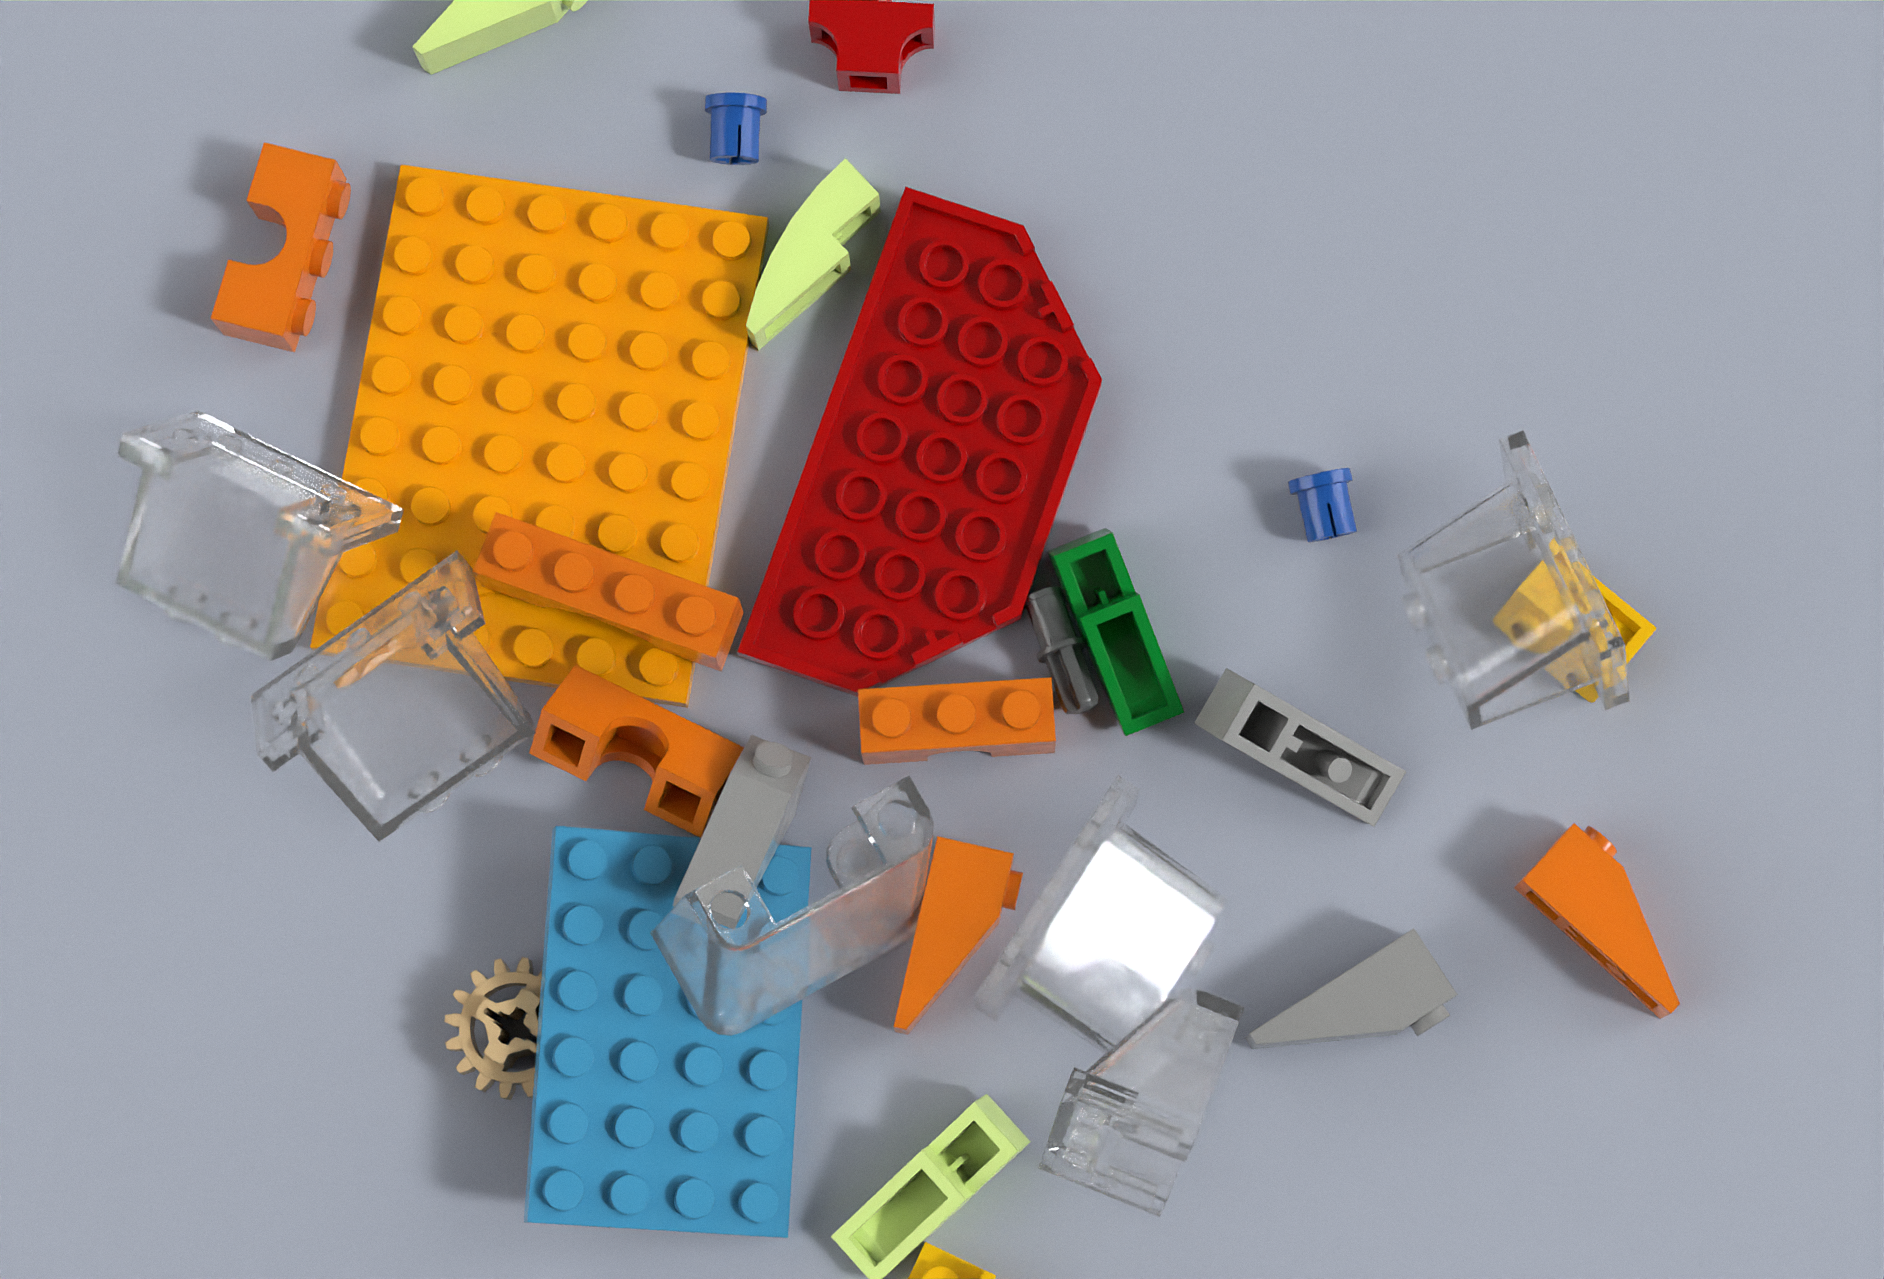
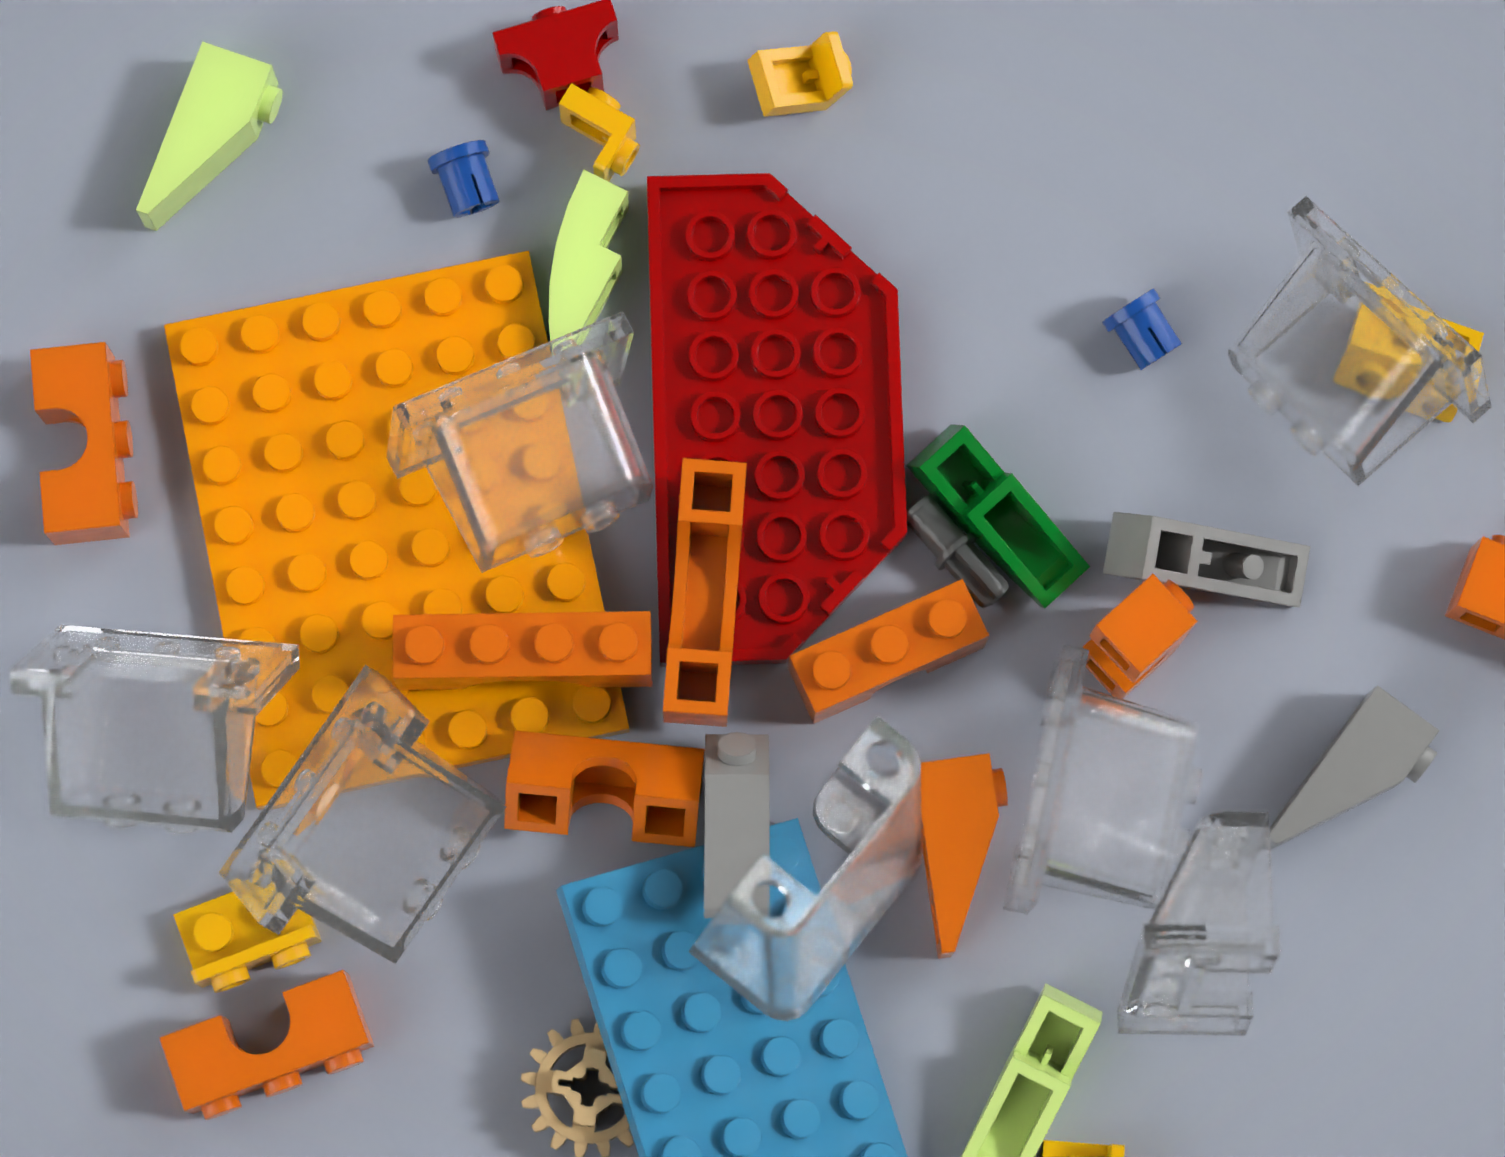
camera: 30 degrees left, 0 degrees up
(230, 769) = (228, 942): none -> yellow bracket
(291, 877) = (216, 1071): none -> orange arch
(691, 399) = (529, 445): none -> clear windscreen
(802, 601) = (704, 592): none -> orange arch
(882, 116) = (599, 119): none -> yellow bracket
(1089, 144) = (801, 76): none -> yellow bracket
(1196, 793) = (1139, 635): none -> orange arch

